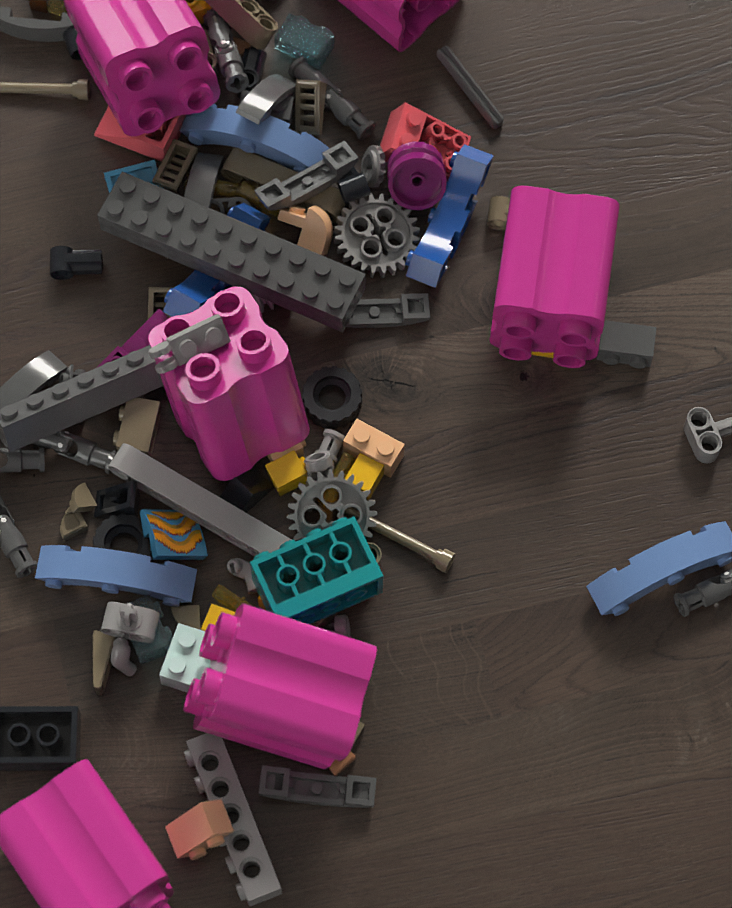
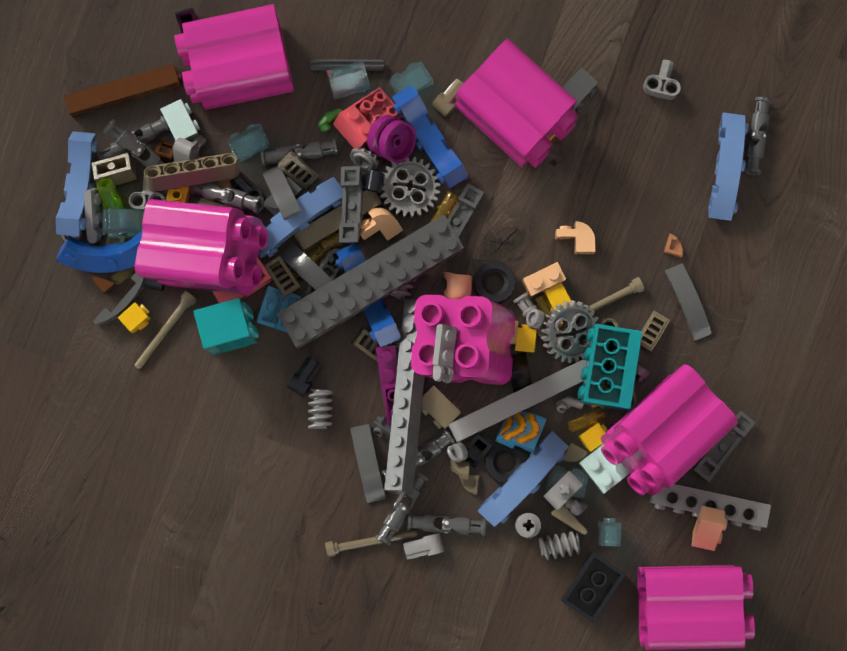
camera: 50 degrees left, 15 degrees up
(21, 48) = (135, 317): none -> yellow brick
(46, 300) = (320, 409): none -> light grey piece
(61, 612) = (533, 519): none -> light grey piece
(61, 671) = (559, 545): none -> light grey piece
(70, 131) = (226, 326): none -> teal brick
(99, 482) = (457, 452): none -> light grey tile
(115, 713) = (609, 532): none -> clear light blue brick
(302, 355) = (457, 285): none -> light nougat helmet
(383, 289) = (445, 207): none -> clear yellow pin
(387, 104) = (327, 118): none -> bright green arm
(401, 623) = (644, 344): none -> dark tan slope
(452, 95) = (348, 79): none -> clear light blue brick
(457, 458) = (582, 235): none -> light nougat brick
(466, 634) = (689, 301): none -> dark grey slope
(508, 163) = (414, 75): none -> clear light blue brick
(522, 573) = (673, 246): none -> nougat tile

